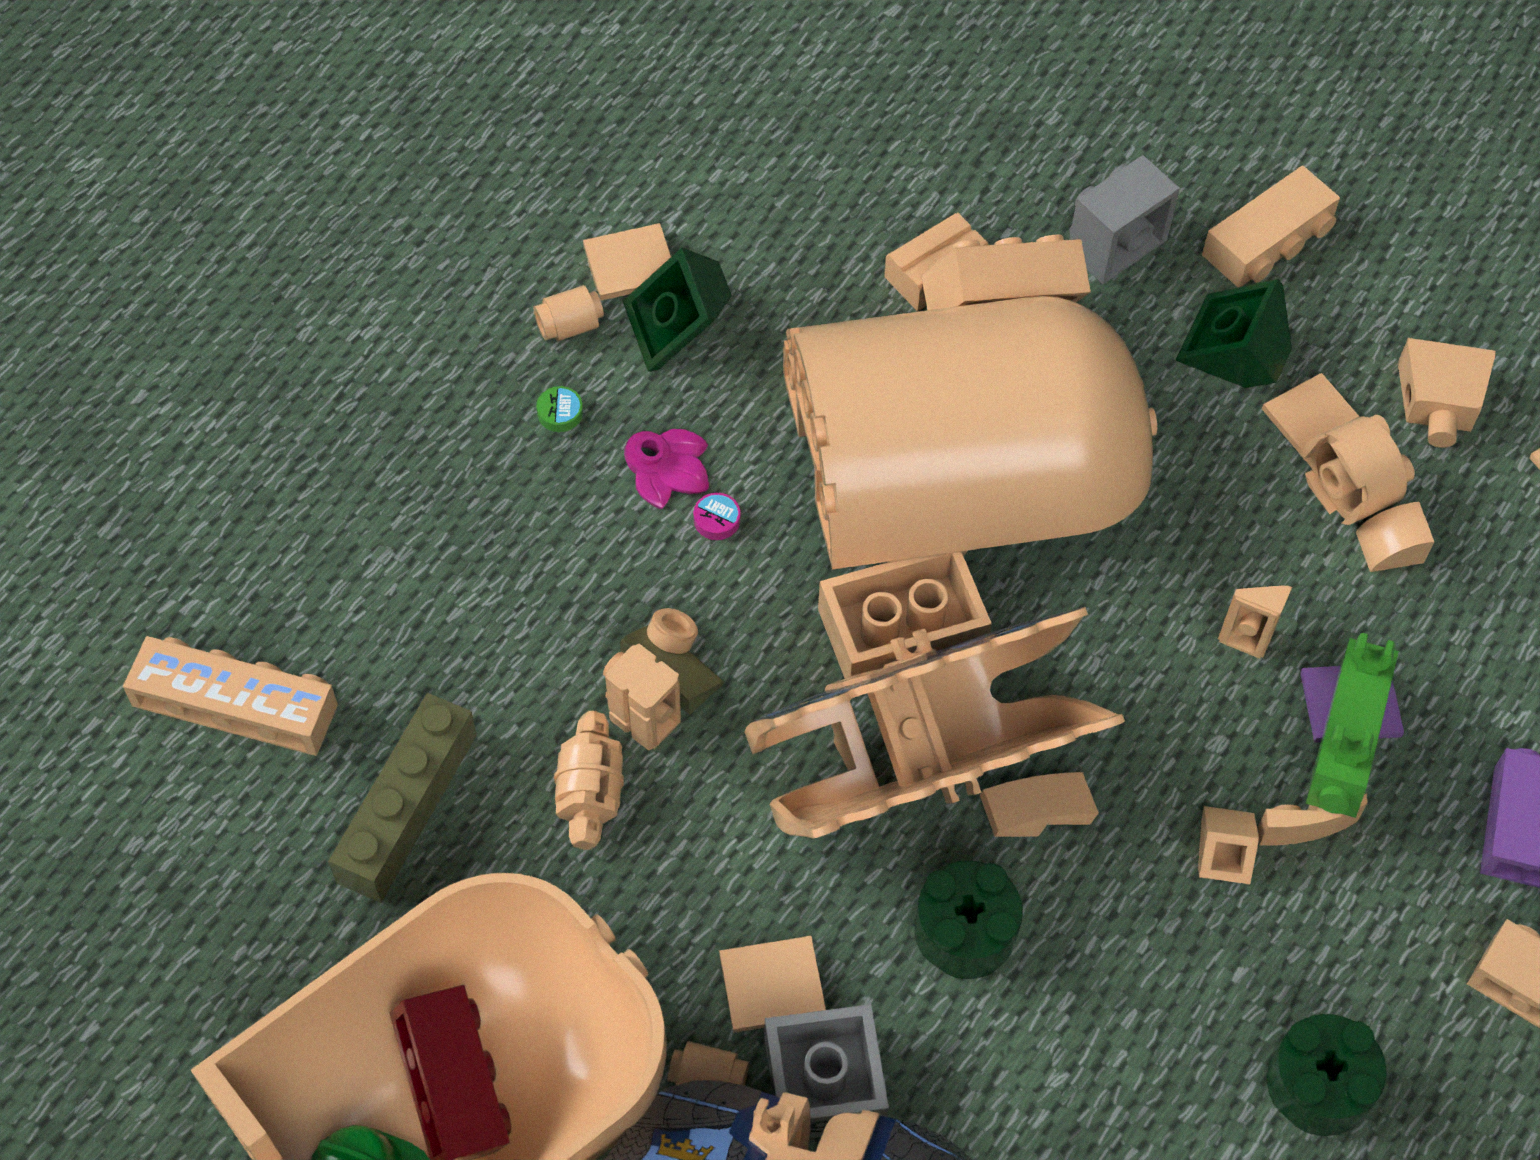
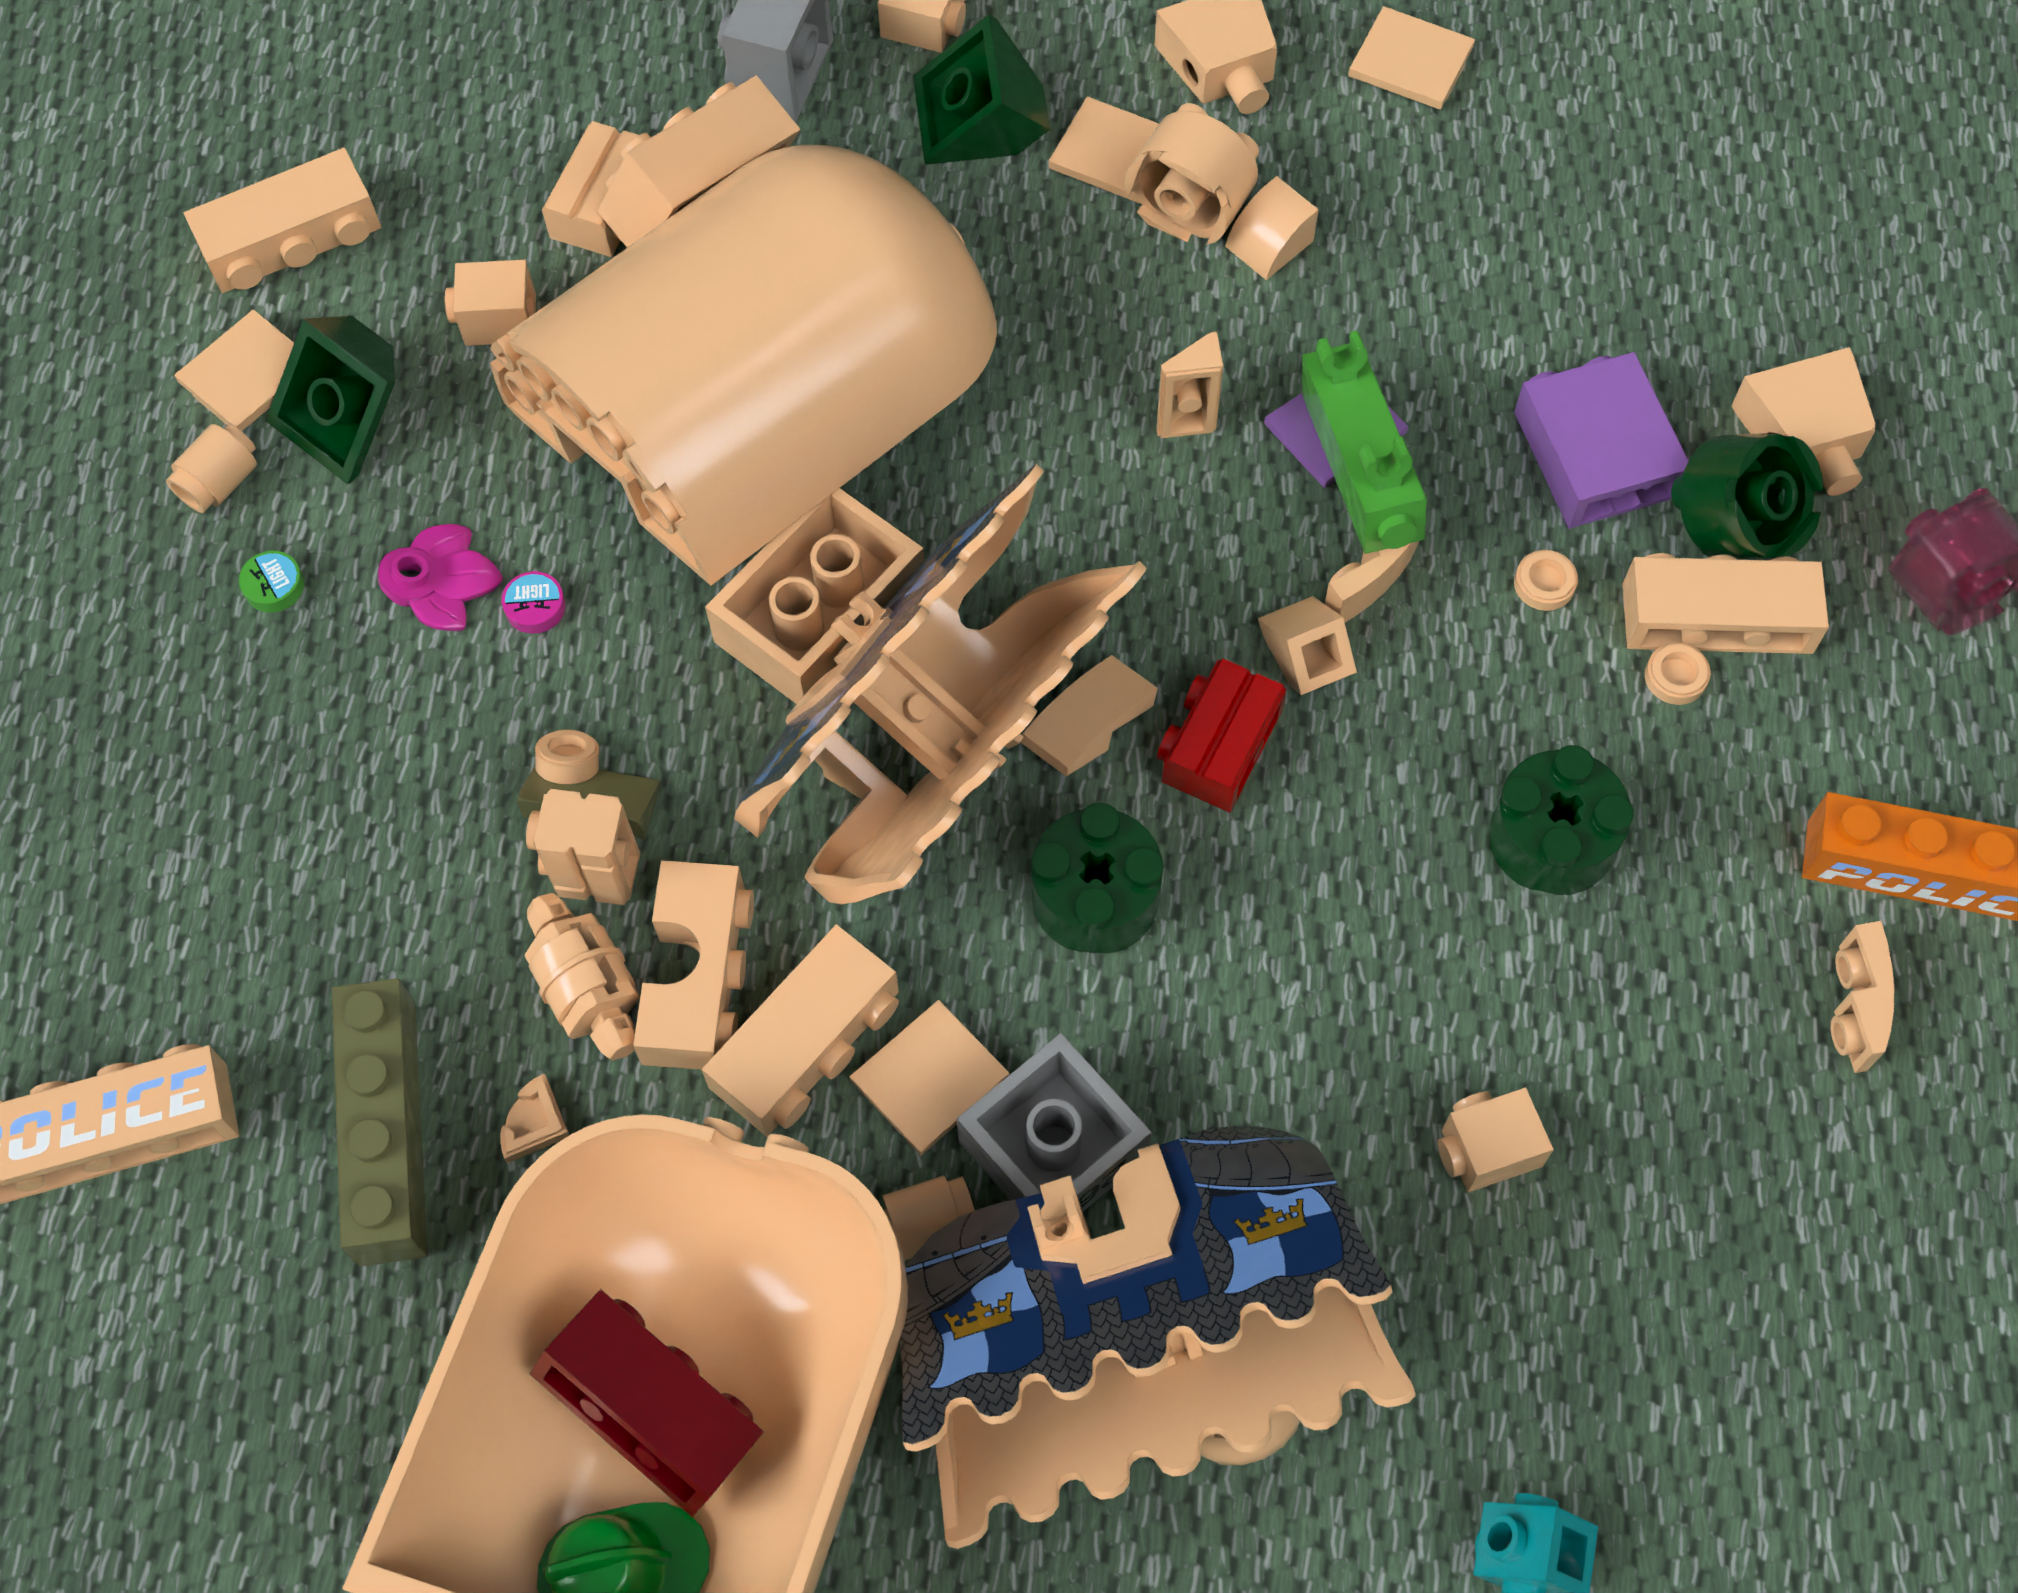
camera: 30 degrees left, 5 degrees up
(500, 854) = (532, 1121): none -> light nougat tile
(640, 849) = (690, 1019): none -> light nougat arch
(708, 902) = (803, 1032): none -> light nougat brick
(715, 174) = (283, 221): none -> light nougat brick
(814, 297) = (489, 299): none -> light nougat brick
(1123, 871) = (1222, 735): none -> red brick
(1436, 899) = (1545, 580): none -> light nougat tile
(1492, 1023) = (1677, 673): none -> light nougat tile

